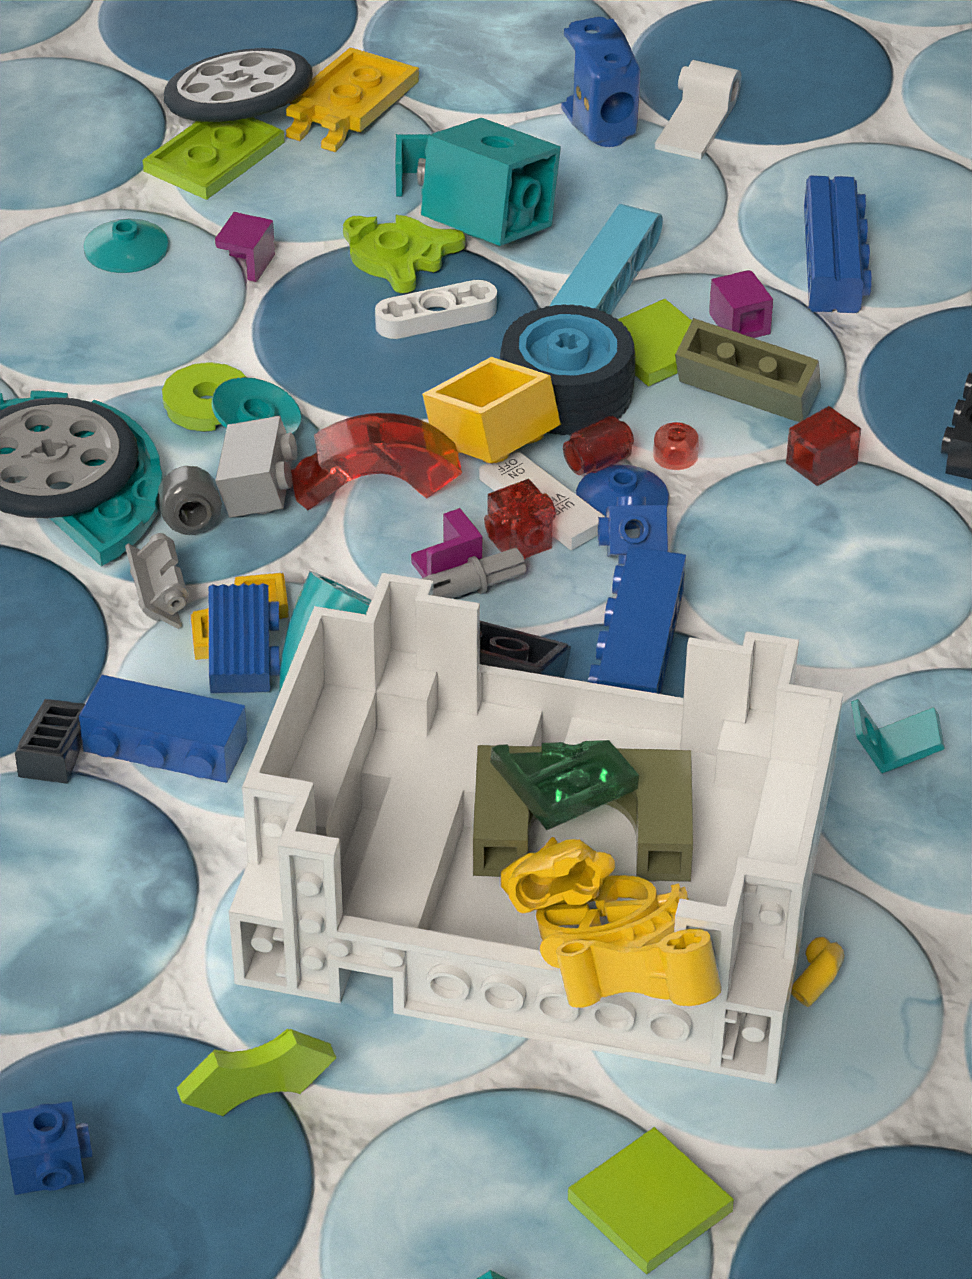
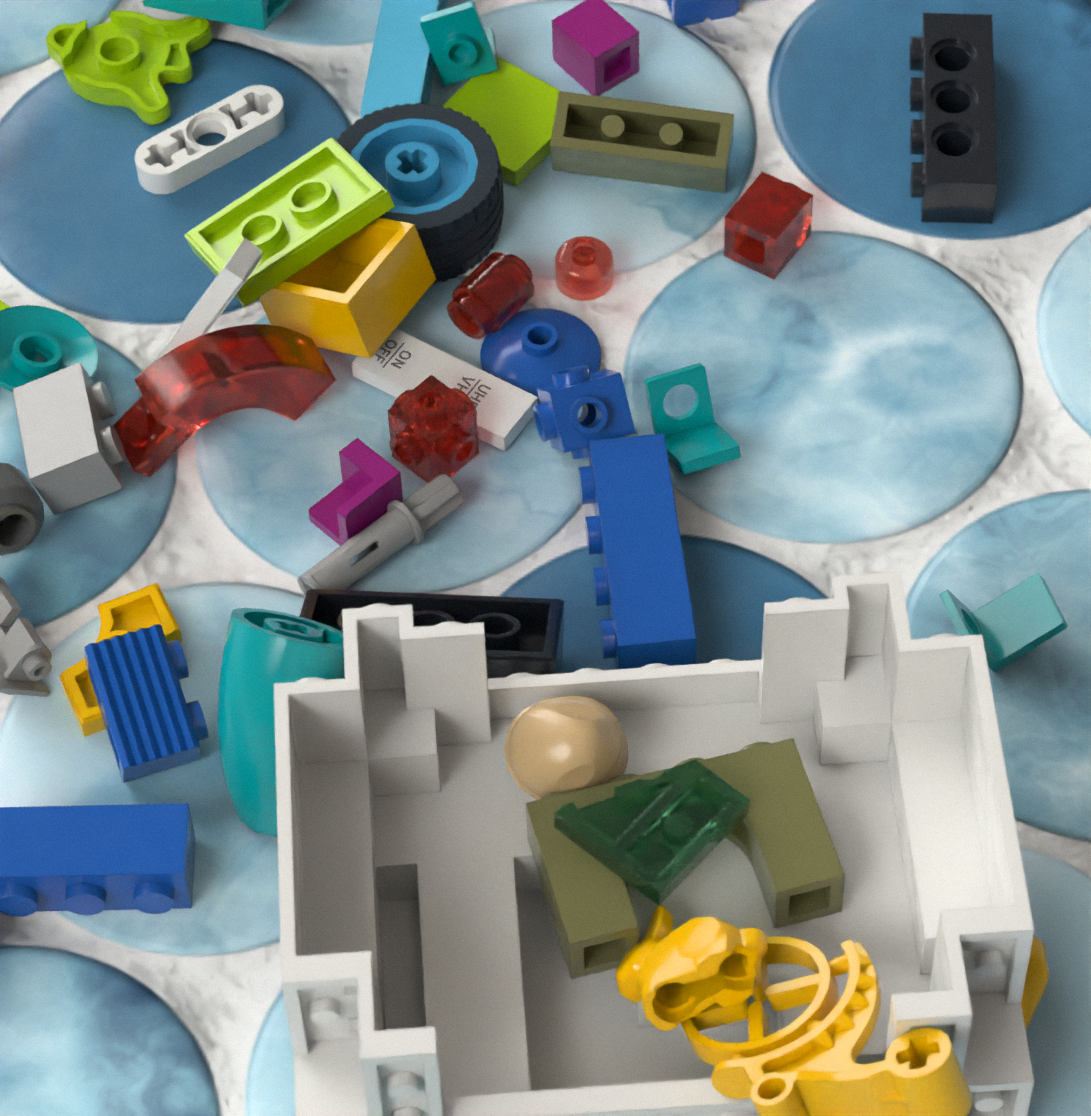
camera: 15 degrees left, 10 degrees up
(391, 385) = (216, 296): none -> white tile
(463, 358) = (293, 217): none -> lime tile
(523, 717) = (565, 746): none -> tan hat
(637, 279) = (459, 43): none -> teal bracket
(713, 570) = (694, 438): none -> teal bracket

